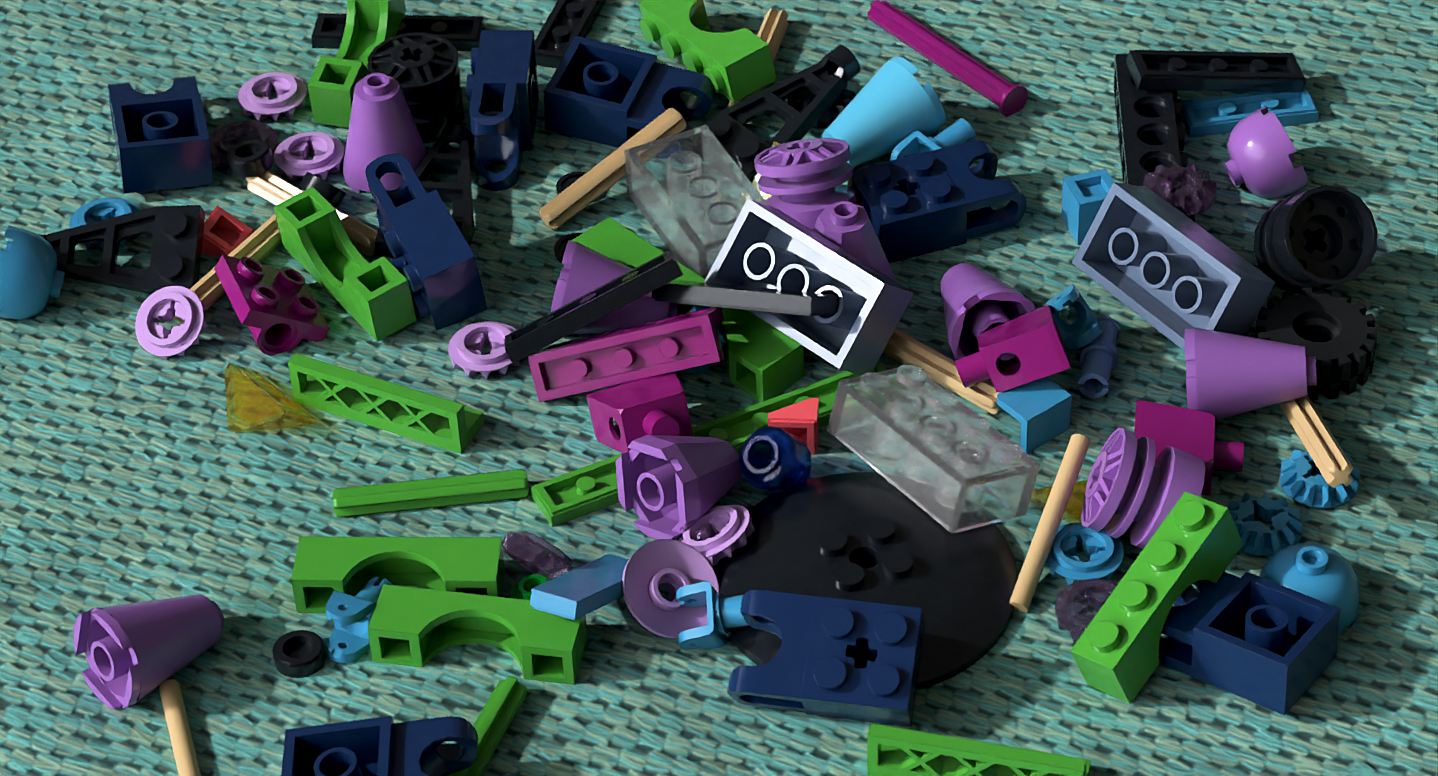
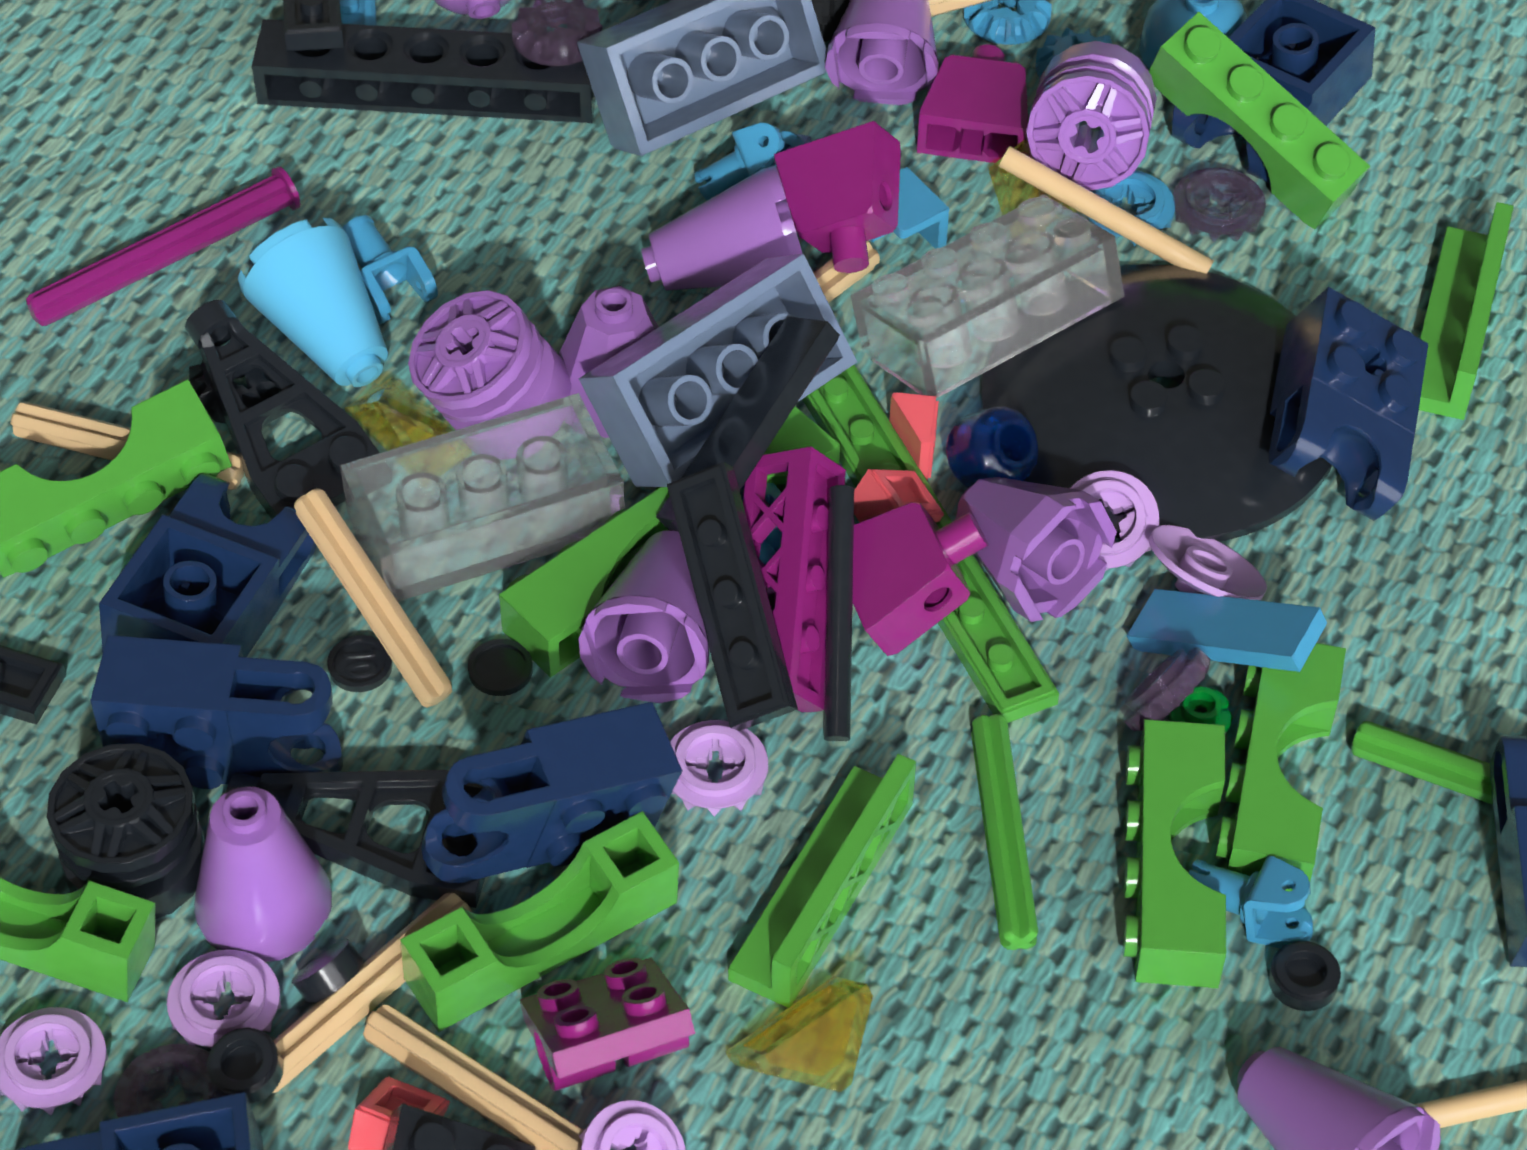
camera: 90 degrees left, 10 degrees up
(602, 380) = (839, 614): none -> black bar
(721, 615) = (1255, 517): dark azure piece -> none
(722, 415) = (889, 489): none -> coral slope
(936, 199) = (499, 252): dark blue brick -> none
(1082, 200) = (535, 128): dark azure panel -> none

